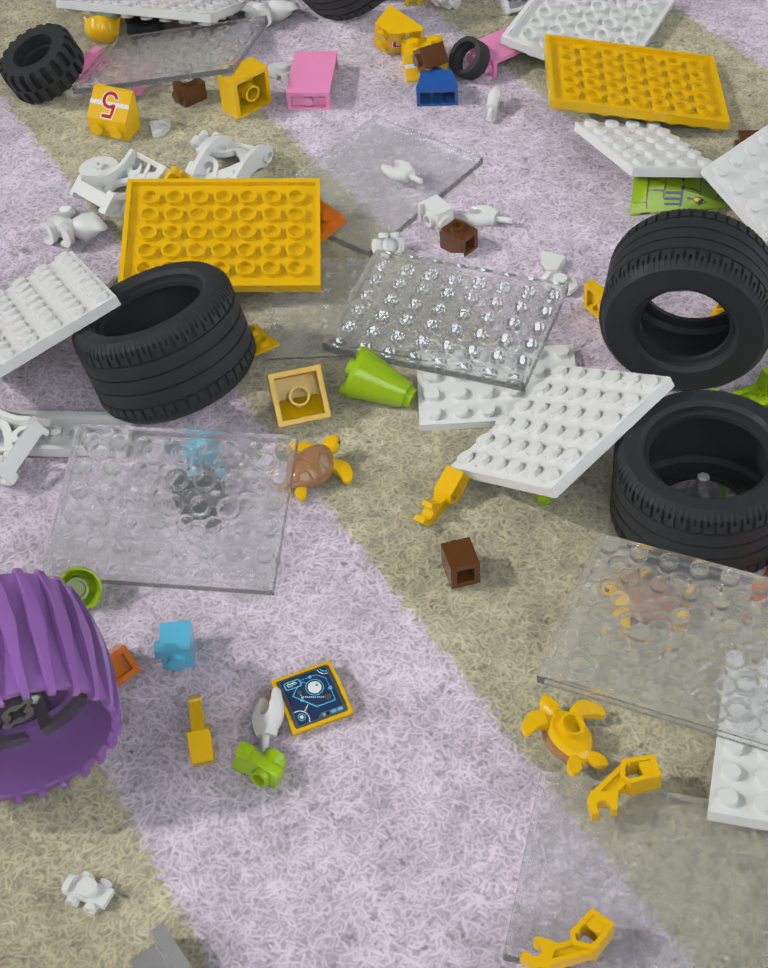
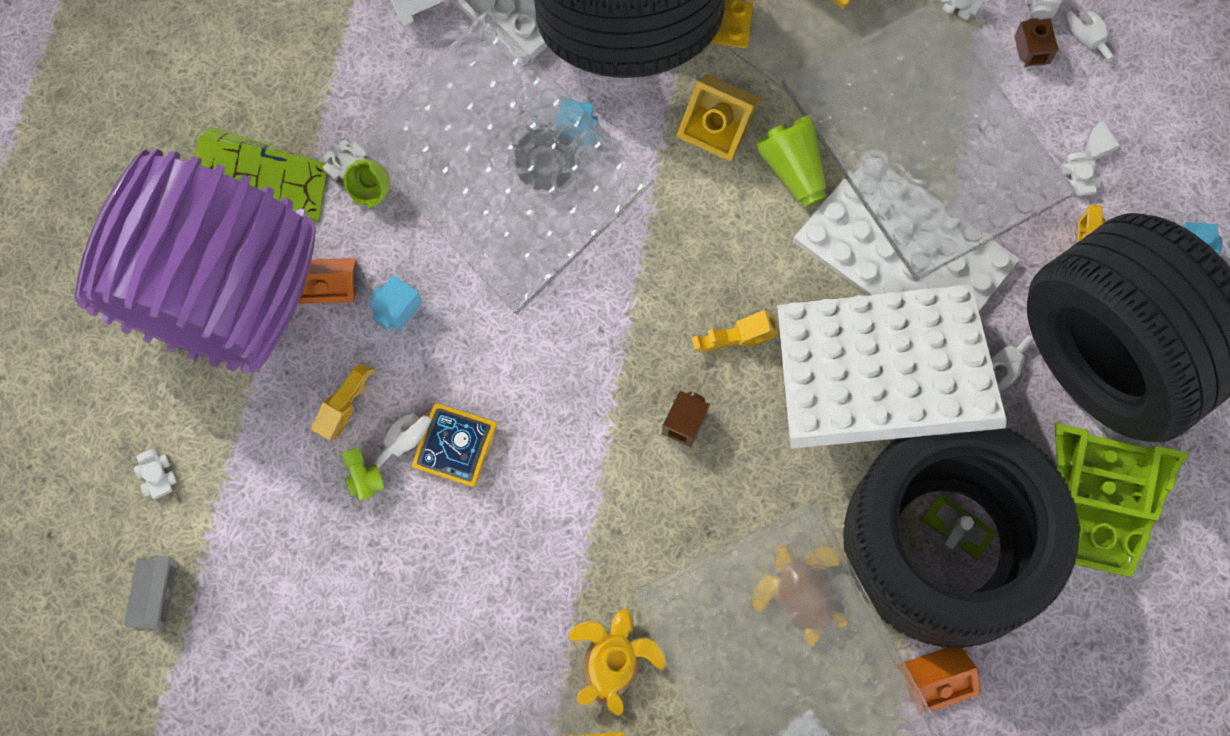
camera: 35 degrees right, 25 degrees up
(315, 465) = (663, 208): medium nougat animal -> none

